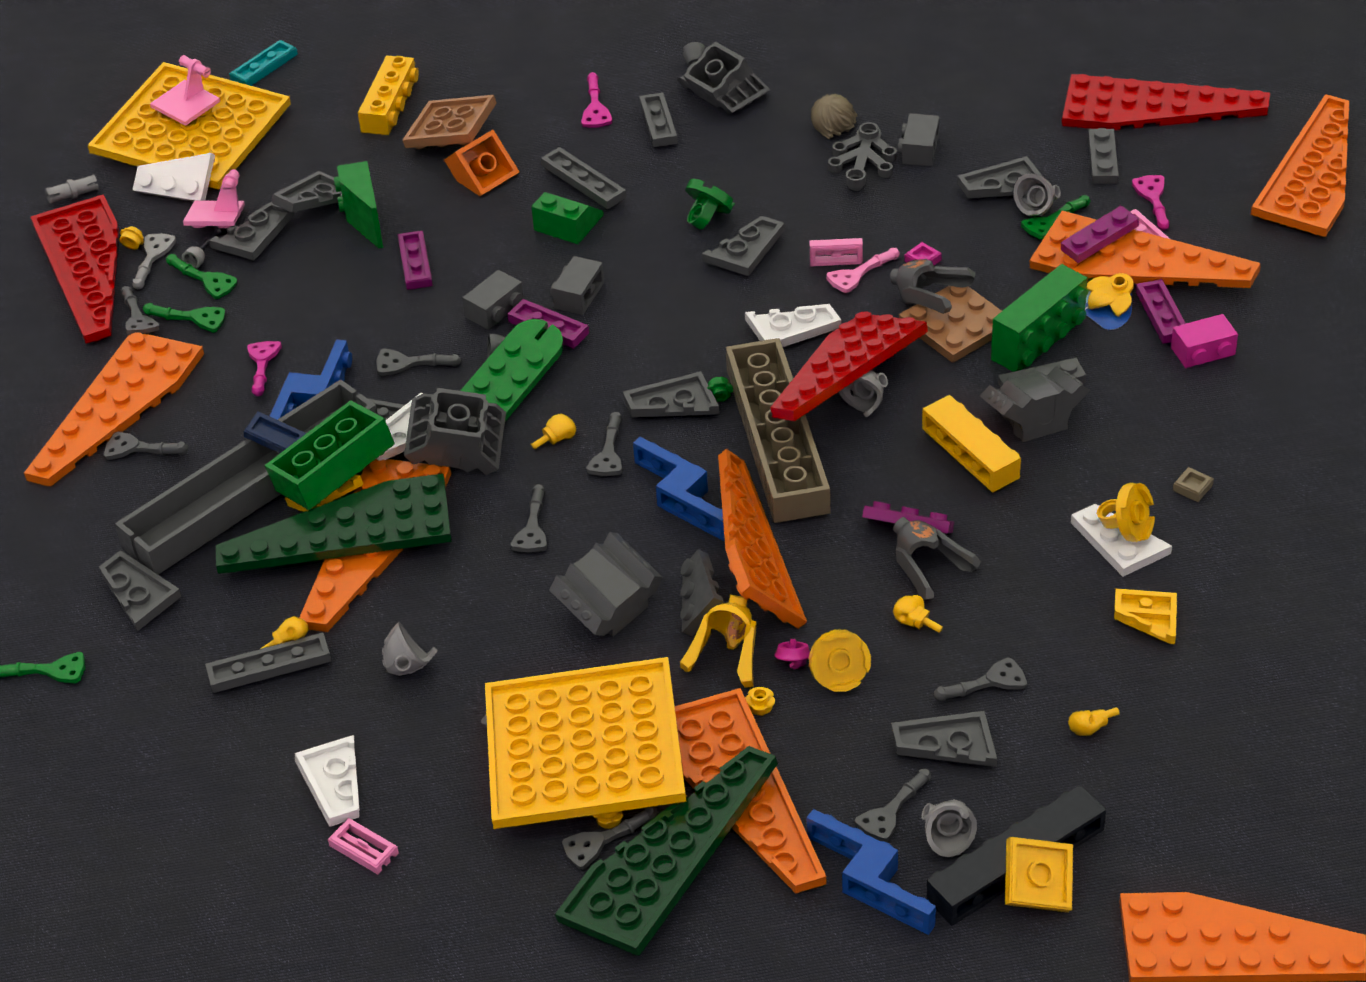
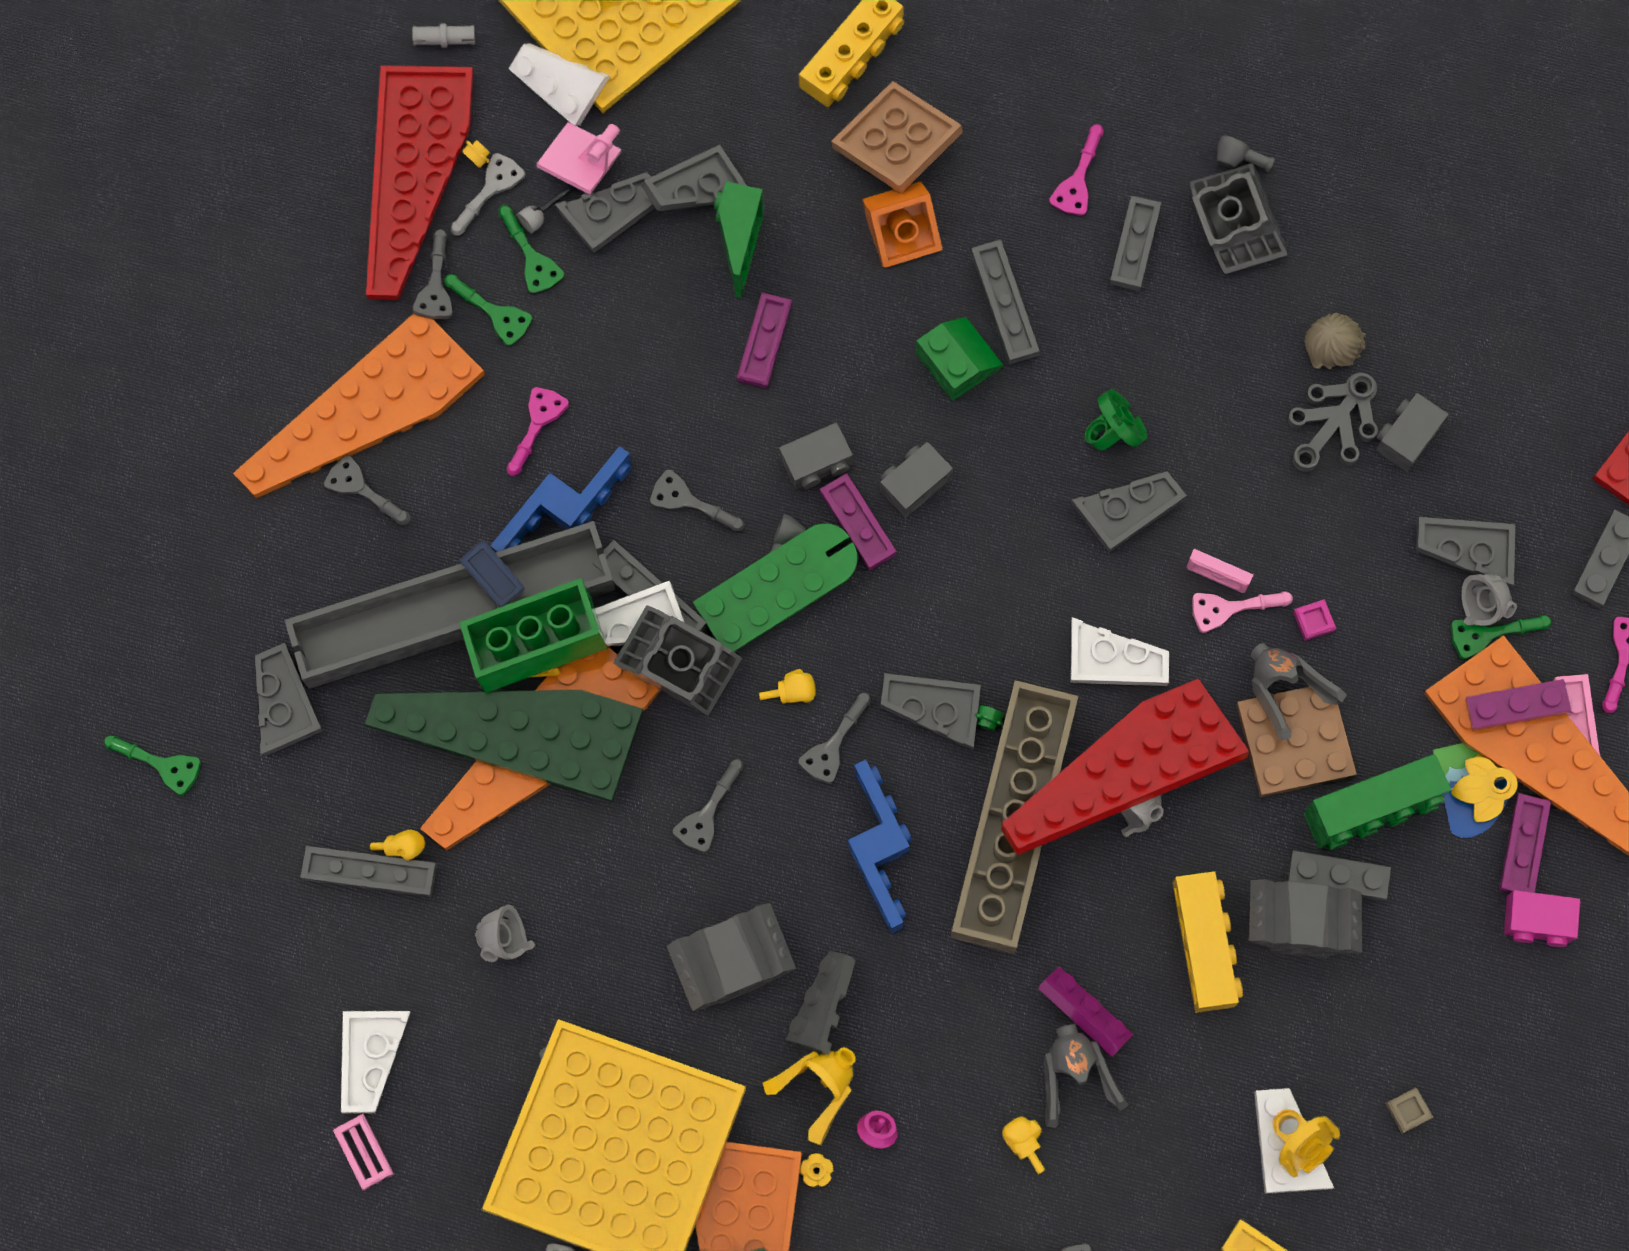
camera: 25 degrees right, 30 degrees up
(752, 546) = (900, 987): orange wing -> none
(839, 660) = (911, 1173): yellow tile -> none

